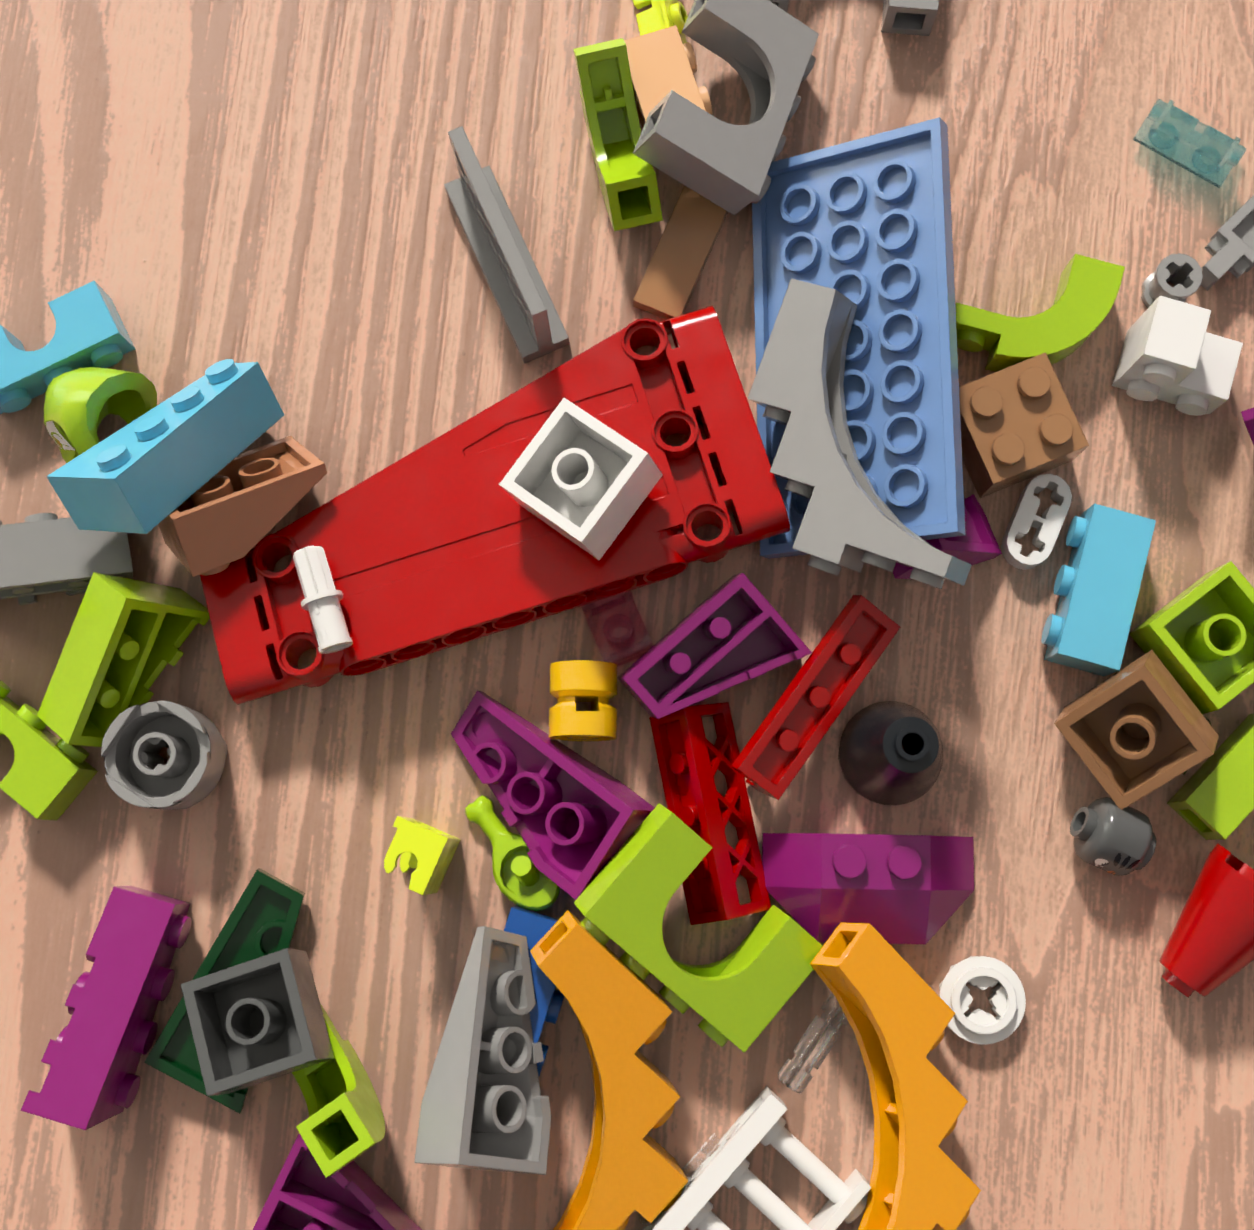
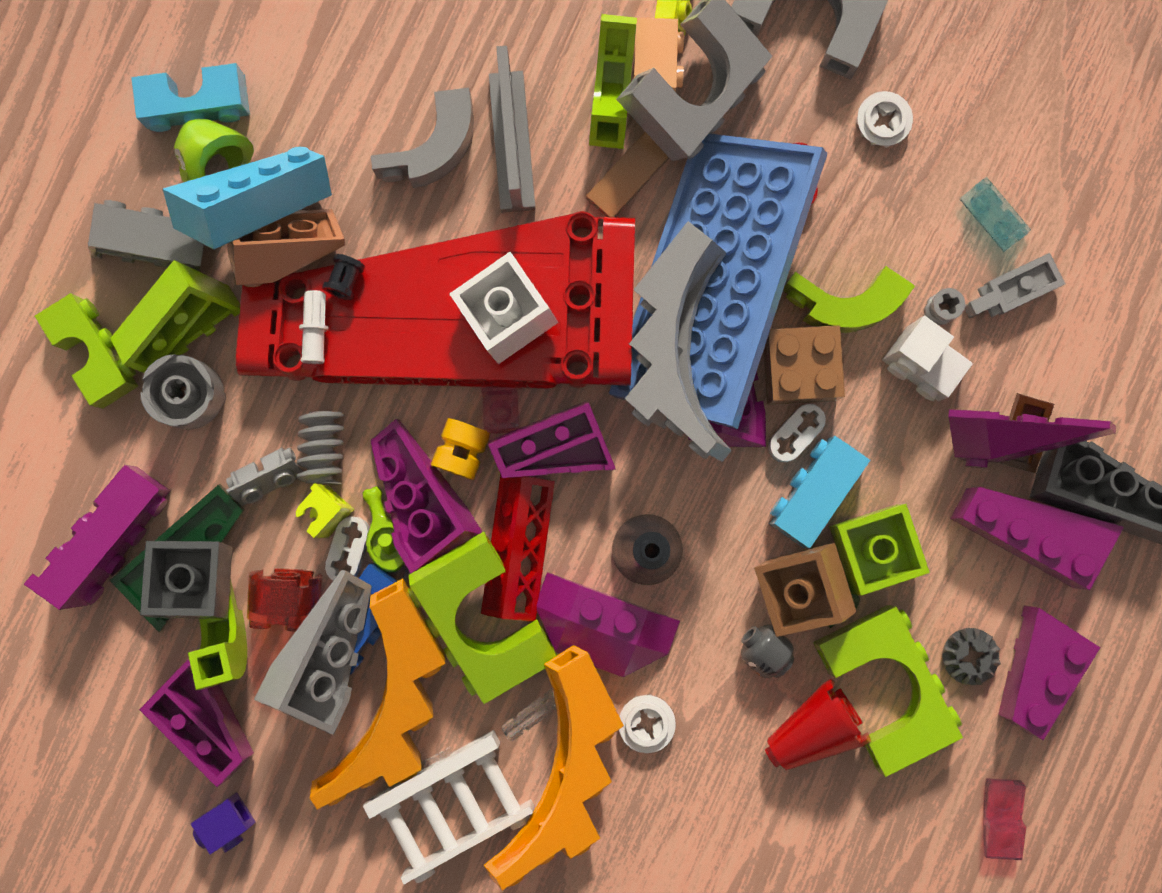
camera: 15 degrees right, 5 degrees up
(302, 854) = (250, 484): none -> light grey hinge
(336, 498) = (352, 268): none -> black bush
(383, 767) = (319, 447): none -> light grey piece
(403, 1000) = (282, 597): none -> clear red brick
(414, 309) = (443, 148): none -> light grey arch
(458, 898) = (339, 546): none -> white beam
(815, 697) = (608, 498): red fence -> none
(986, 51) = (885, 104): none -> white gear

